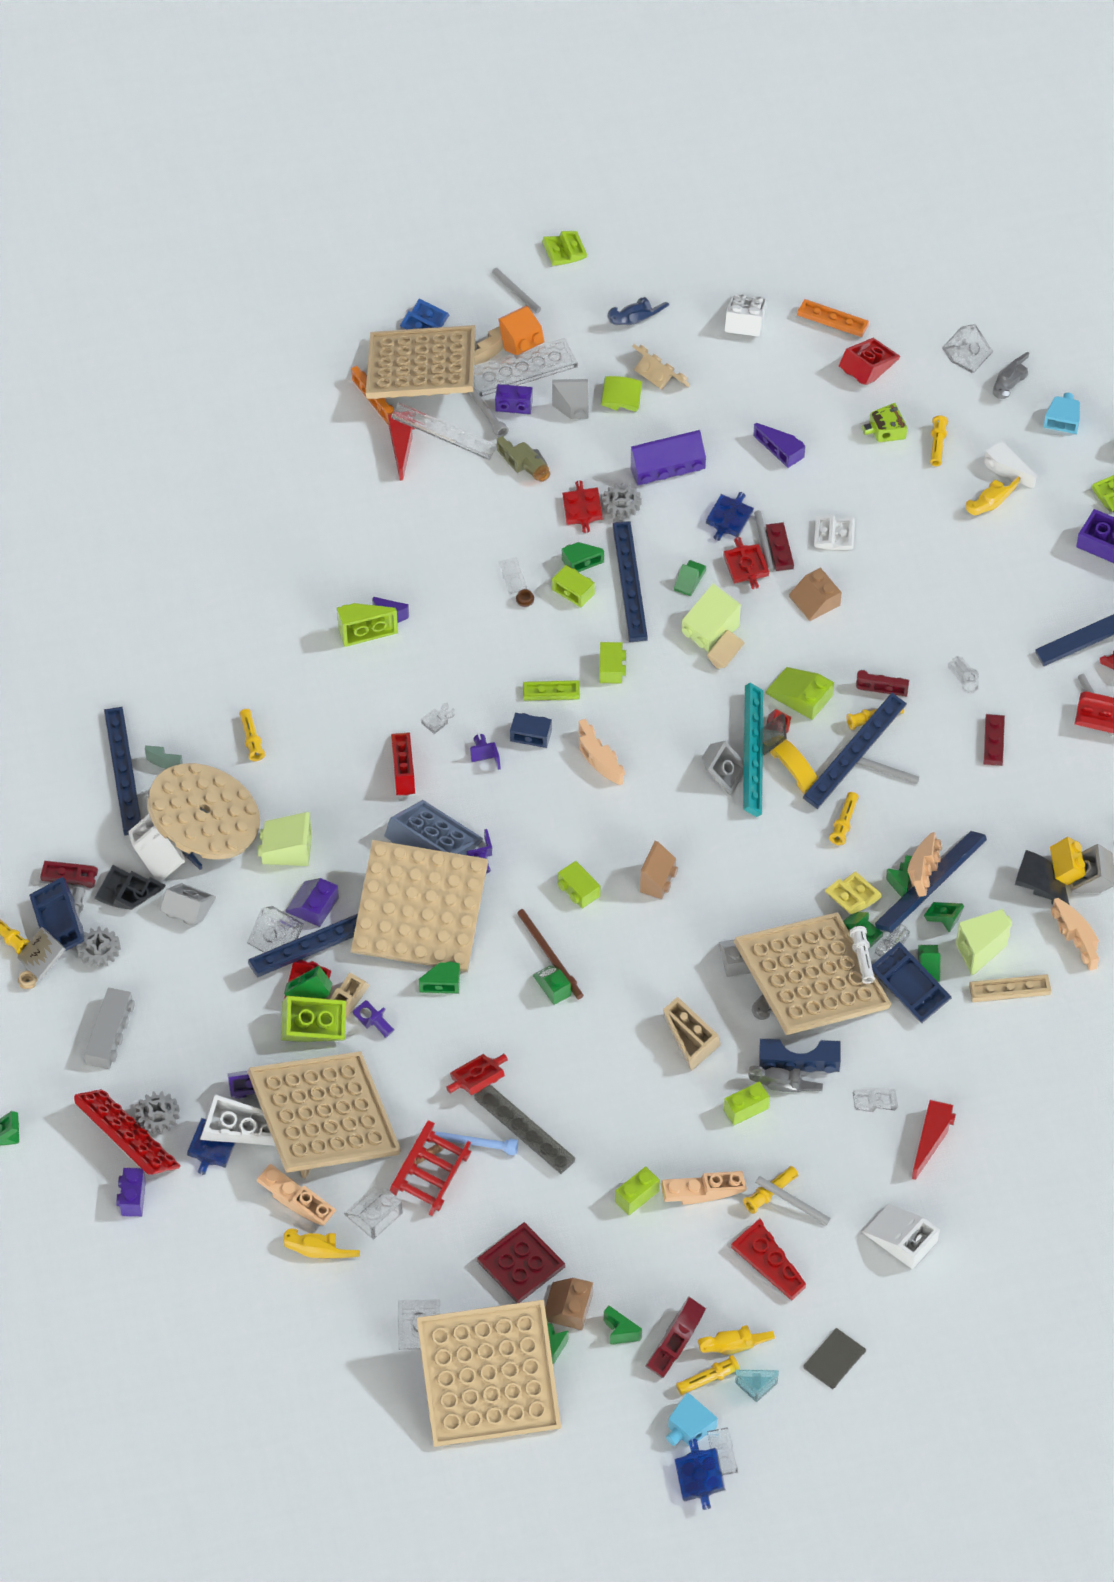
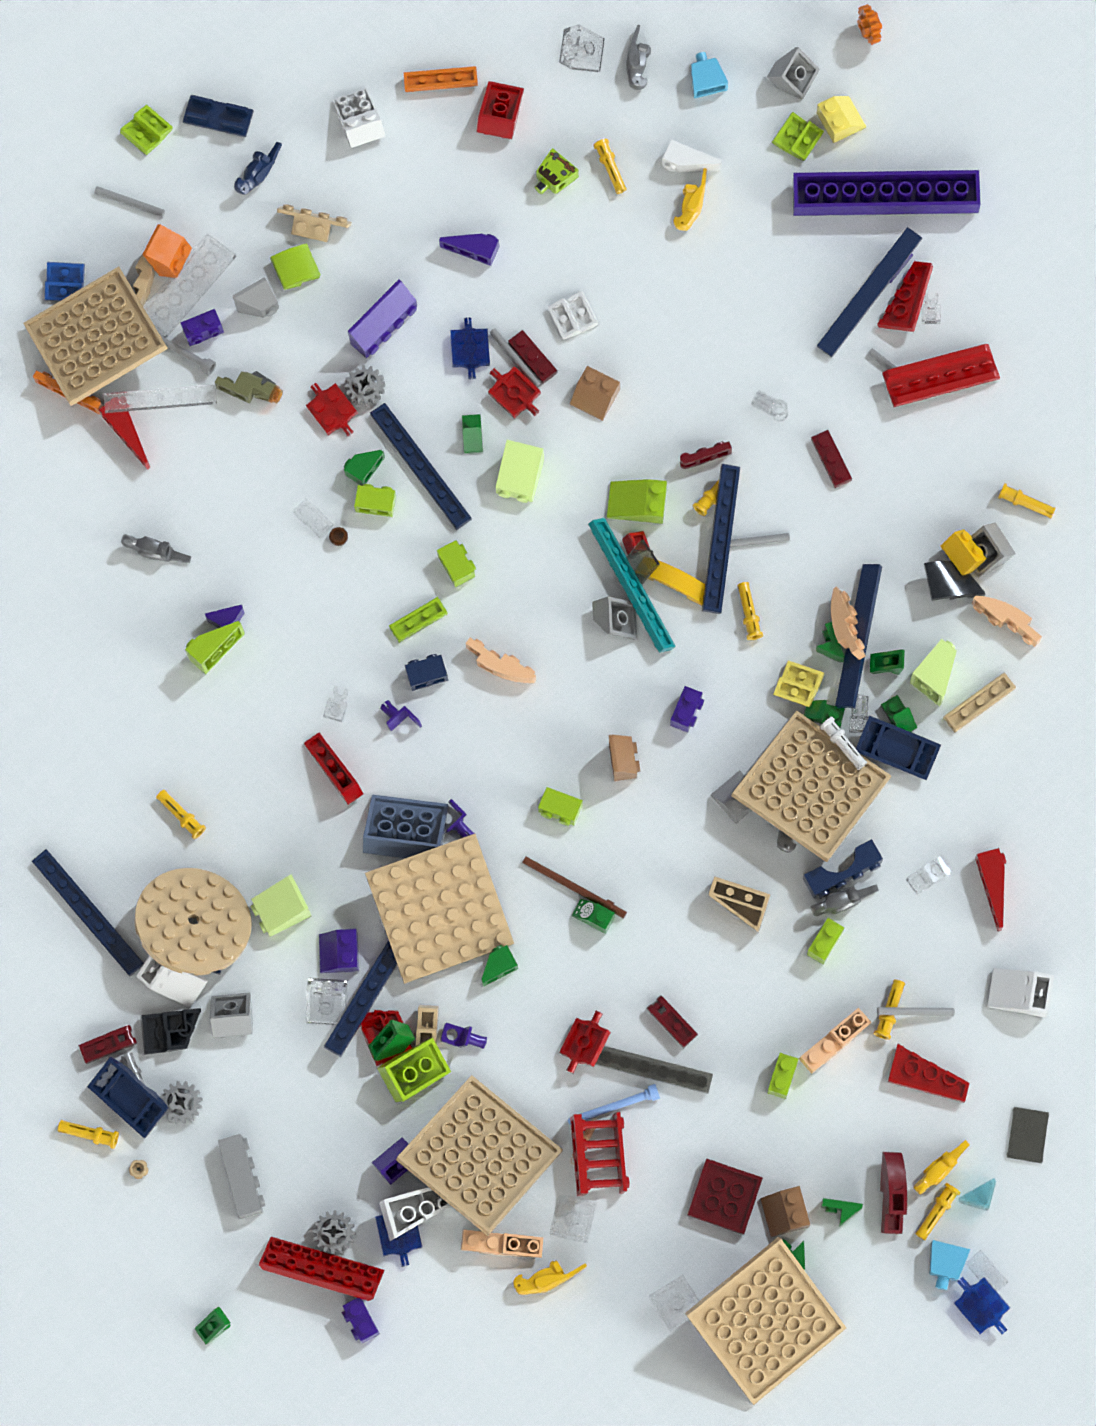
camera: 25 degrees left, 20 degrees up
(41, 953) = (137, 1140): slope -> none
(158, 757) = (112, 883): sand green slope -> none
(364, 534) = (153, 549): none -> flat silver animal
(566, 1100) = (672, 1022): none -> dark red plate
(635, 267) = (218, 115): none -> dark blue brick
(725, 649) = (549, 494): tan slope -> none
(739, 863) = (686, 709): none -> dark purple brick

